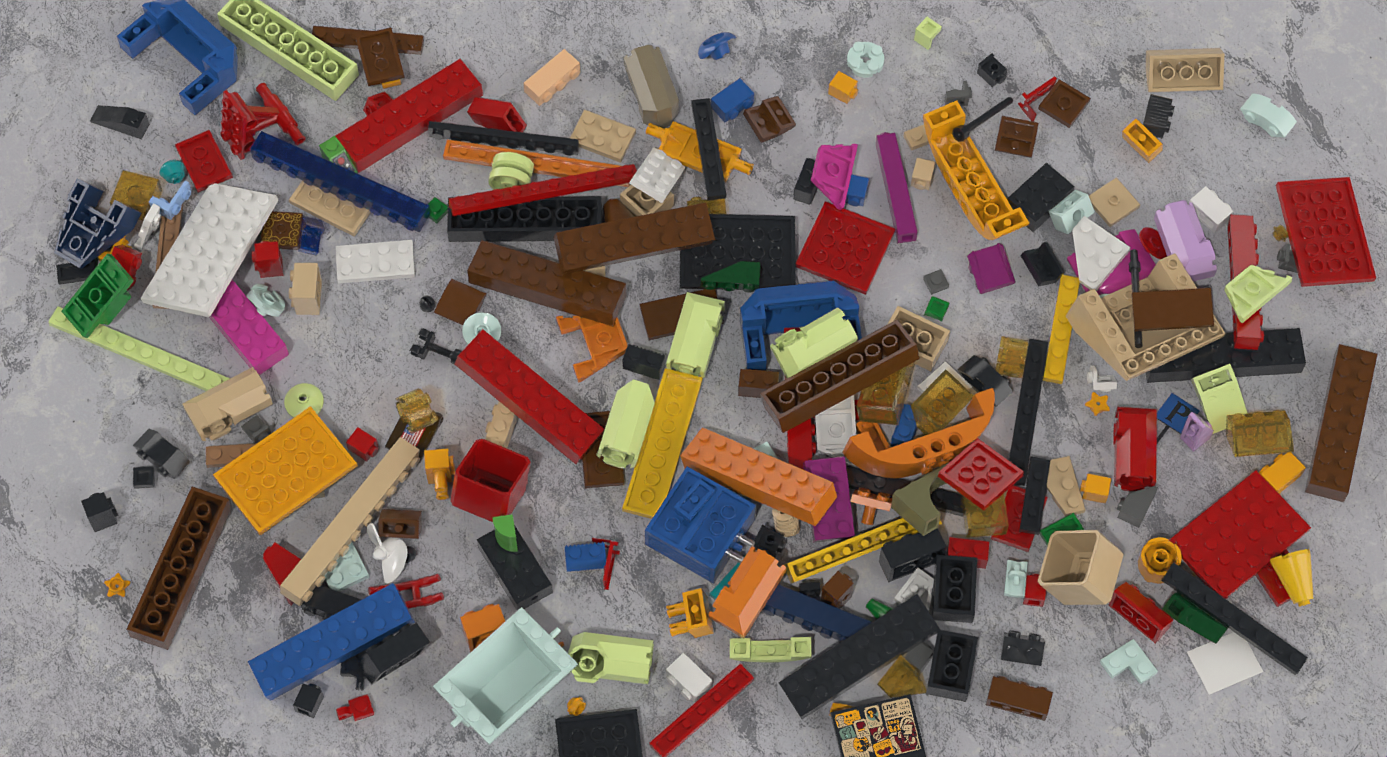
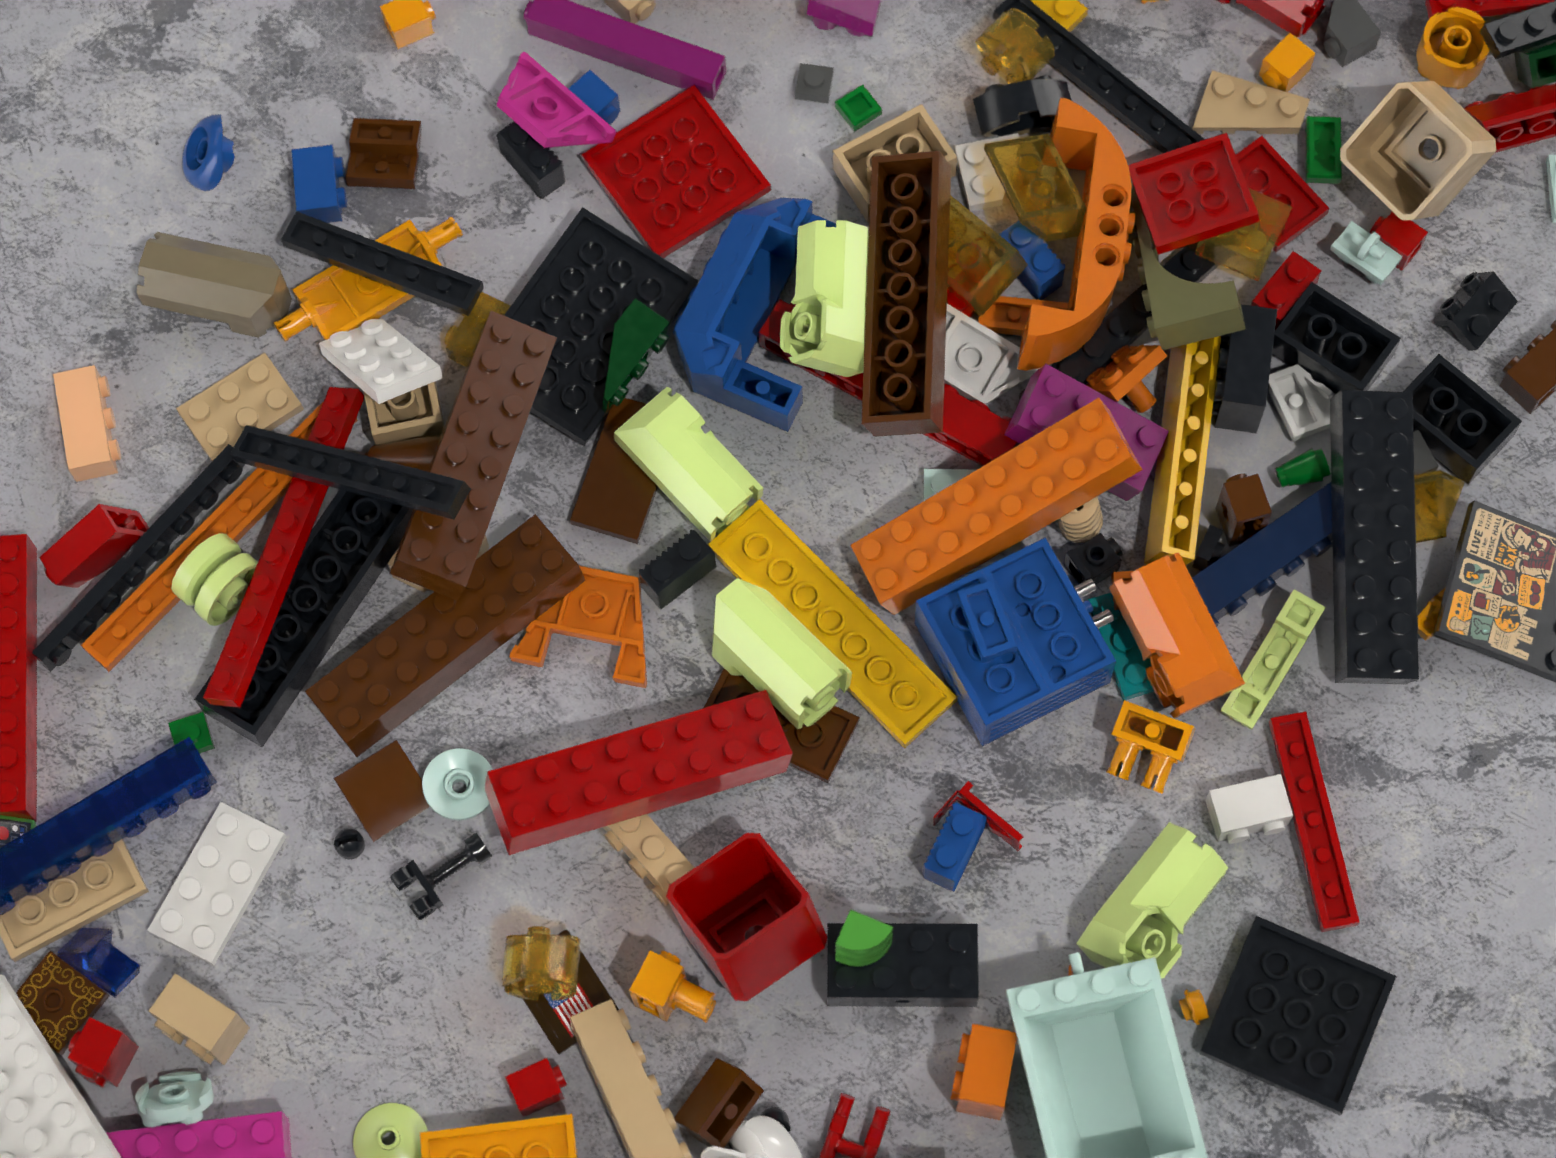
camera: 55 degrees left, 5 degrees up
(588, 191) = (351, 472): none -> black plate
(756, 381) = (823, 424): reddish brown brick -> none
(1034, 495) = (1253, 150): black tile -> none

